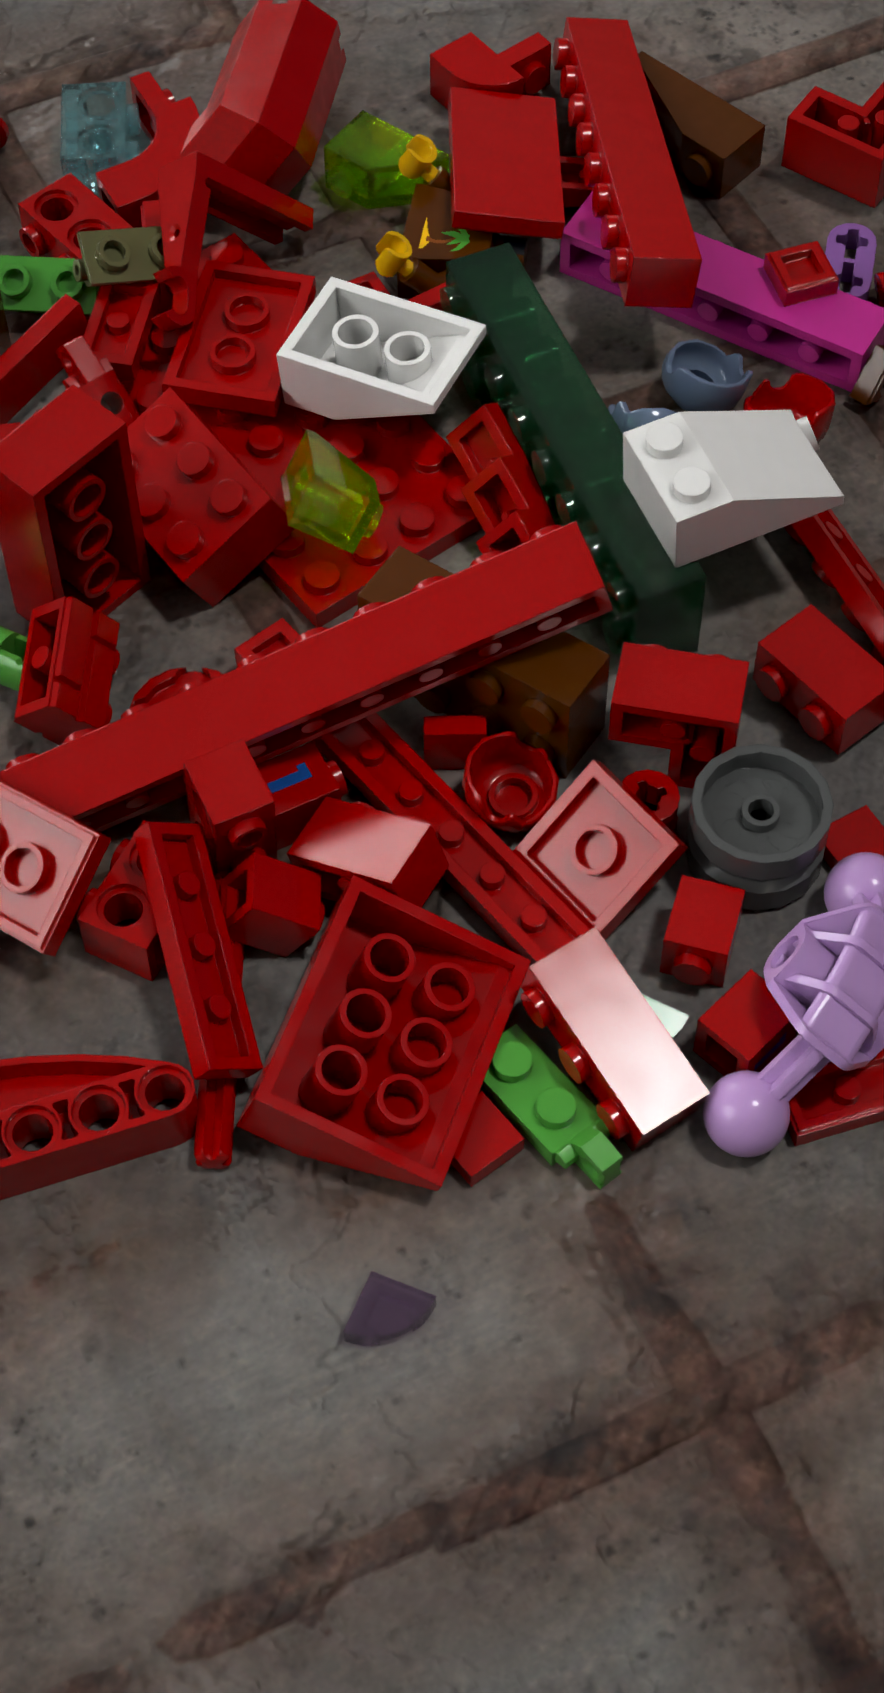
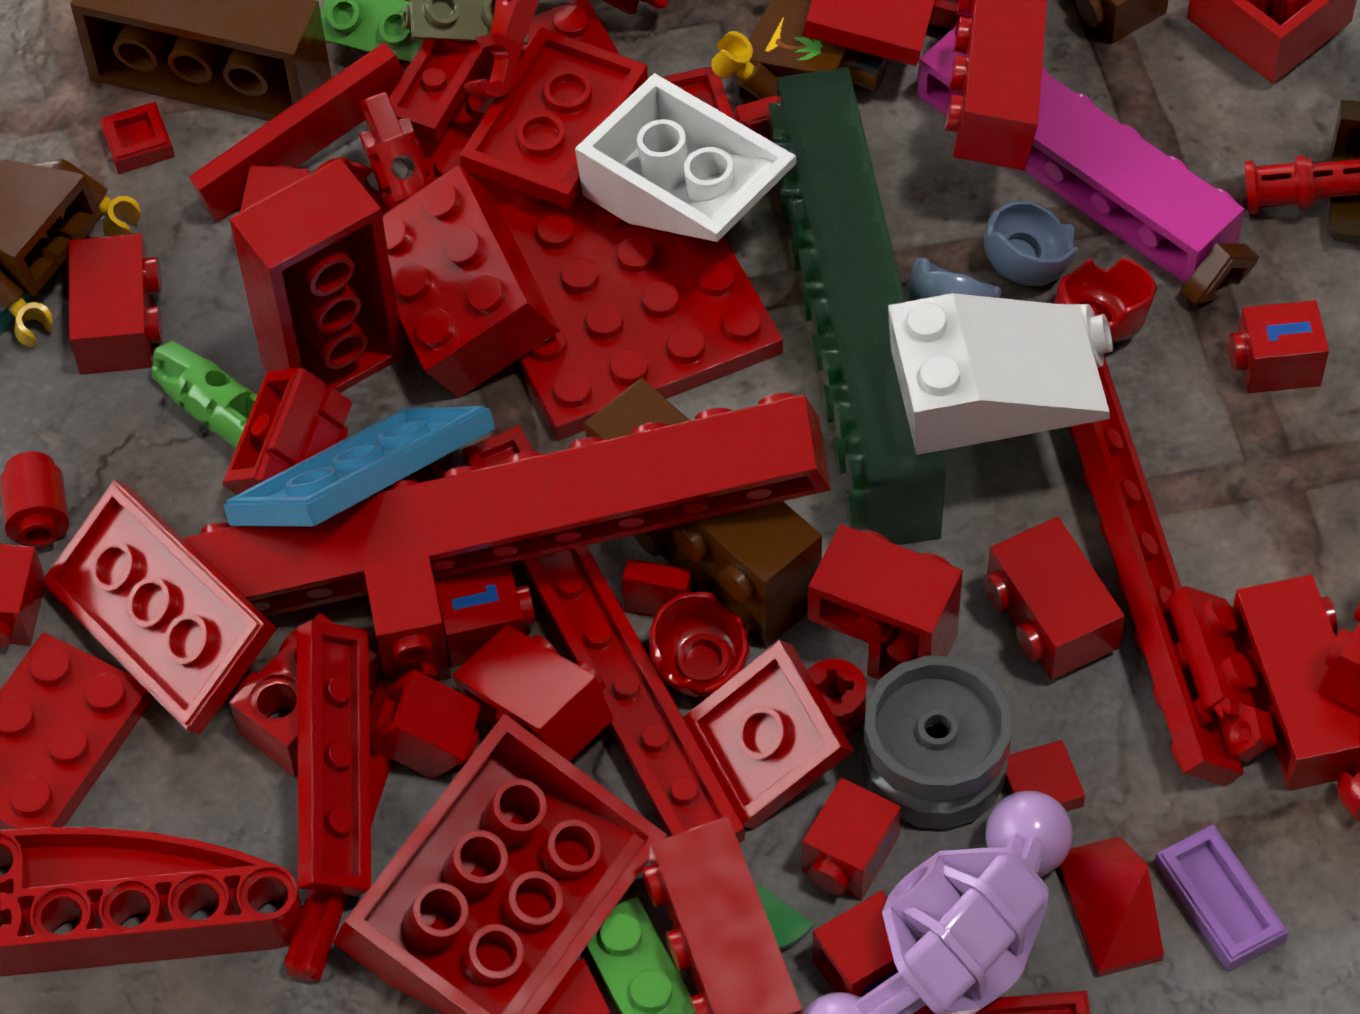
camera: 15 degrees right, 0 degrees up
(146, 678) = (358, 466): none -> dark azure tile
(329, 494) = (594, 307): clear neon green slope -> none
(501, 480) = (778, 329): red slope -> none
(801, 273) = (1157, 150): red tile -> none
(857, 270) = (1233, 152): medium lavender beam -> none

